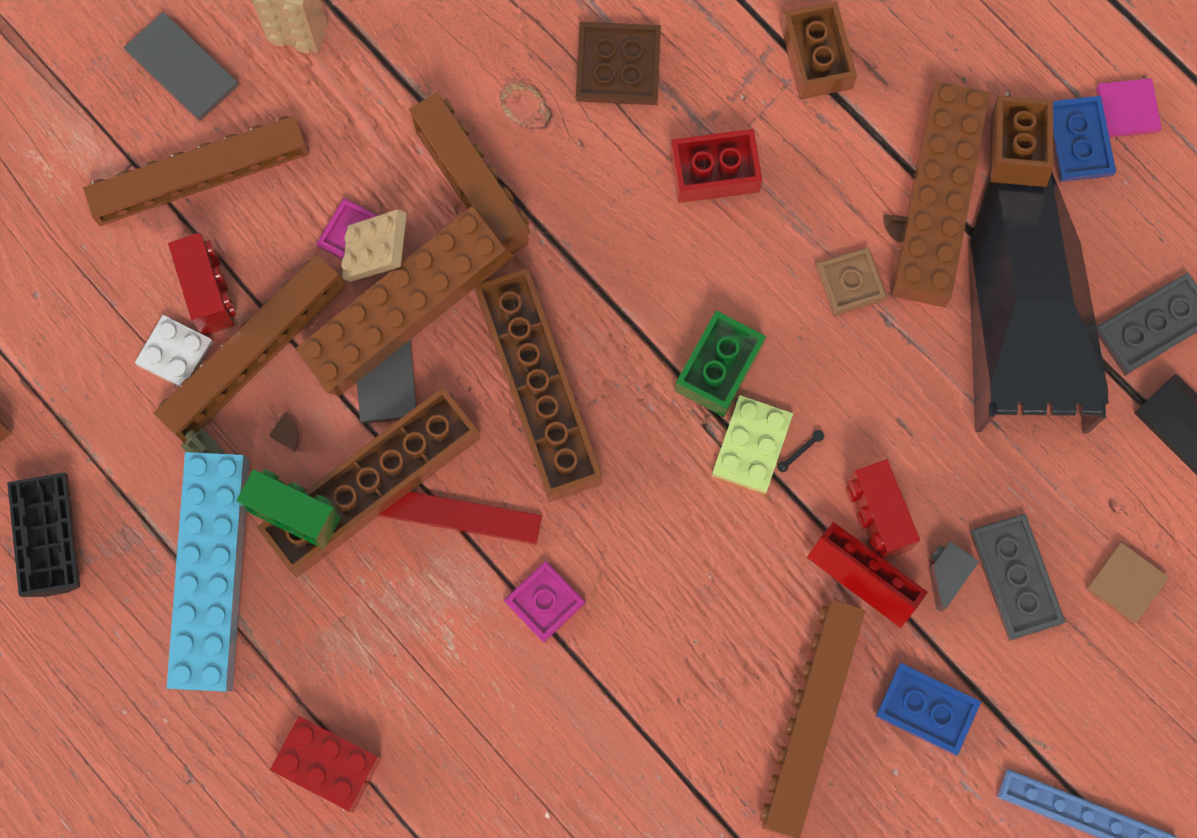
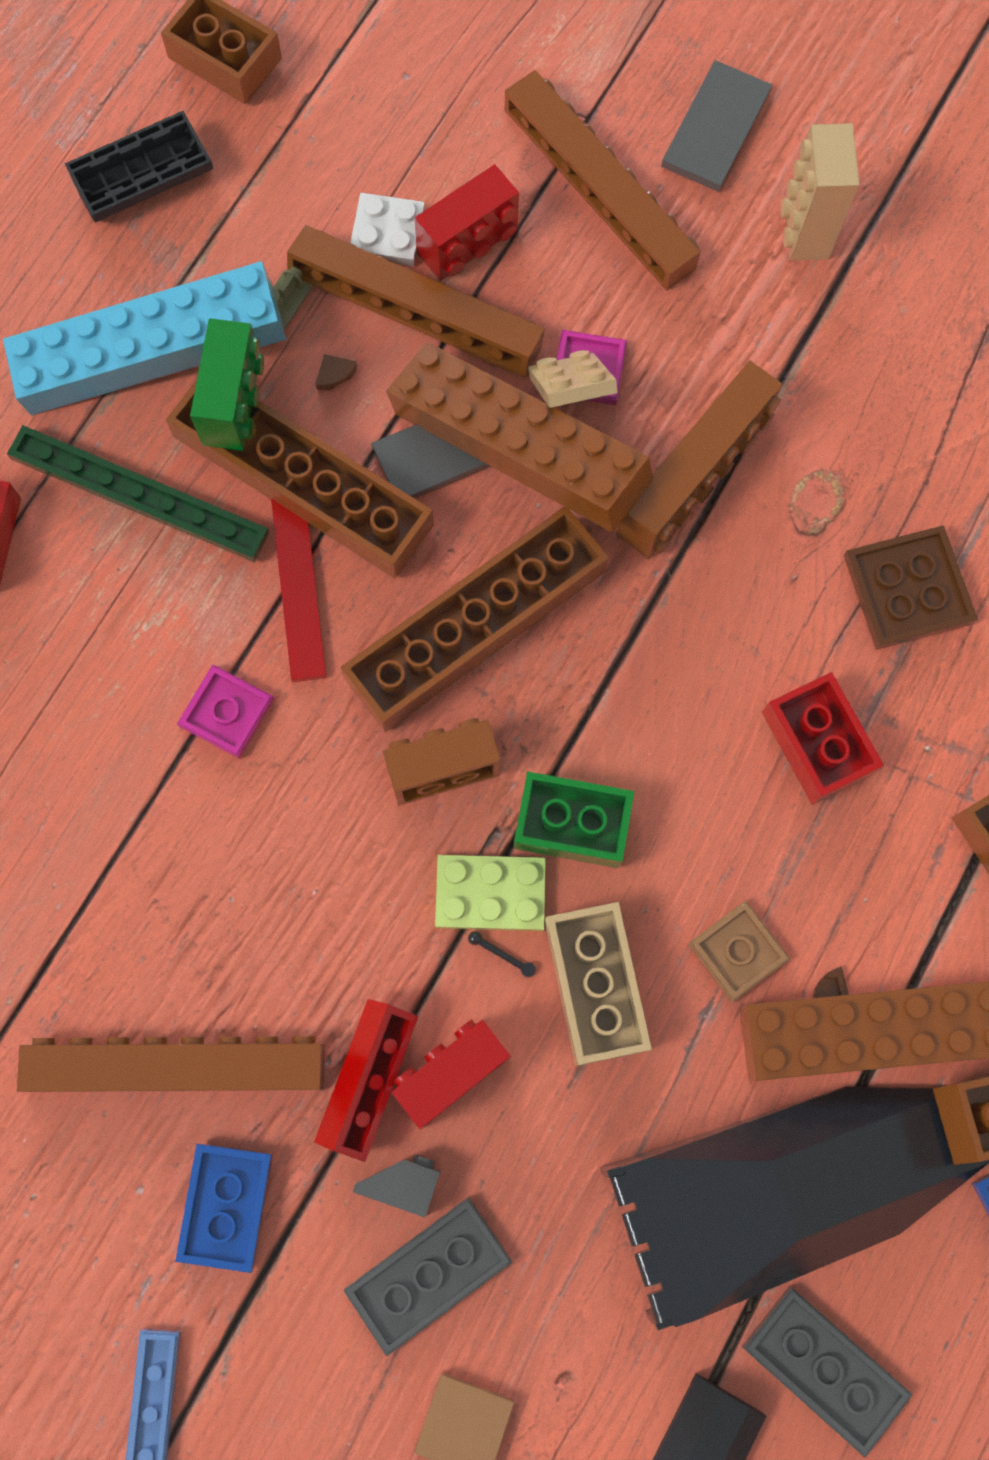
camera: 70 degrees right, 0 degrees up
(336, 620) = (138, 493): none -> dark green plate
(644, 444) = (442, 761): none -> dark orange brick
(848, 386) = (597, 984): none -> tan brick

